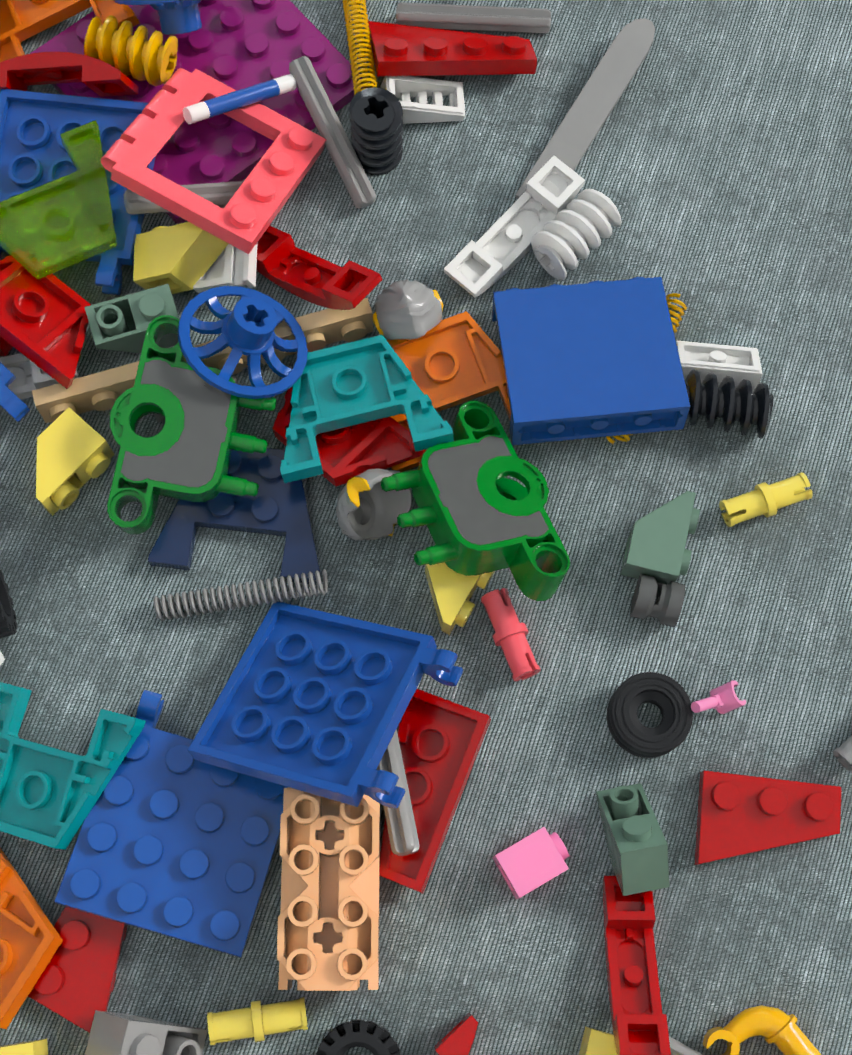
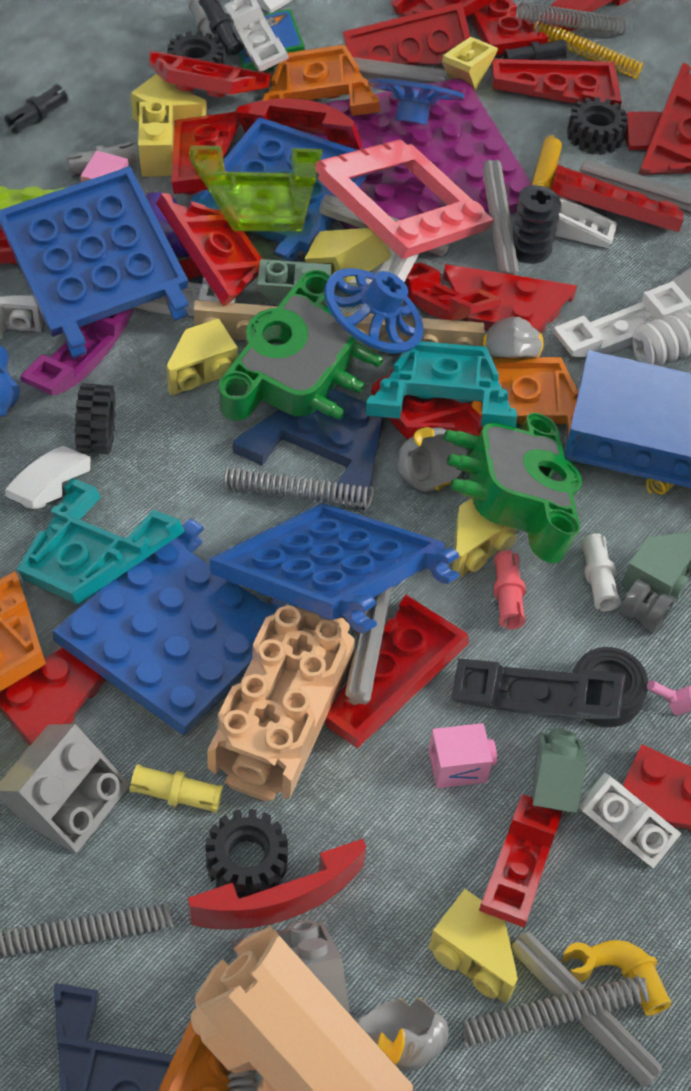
camera: 20 degrees right, 20 degrees down
(130, 52) = (372, 120): yellow piece -> none
(239, 99) = (436, 169): blue bar -> none
(382, 237) = (520, 296): none -> red wing
(585, 754) = (539, 691): none -> black slope
(596, 573) = (600, 572): none -> white pin
(720, 867) = (629, 820): none -> white slope

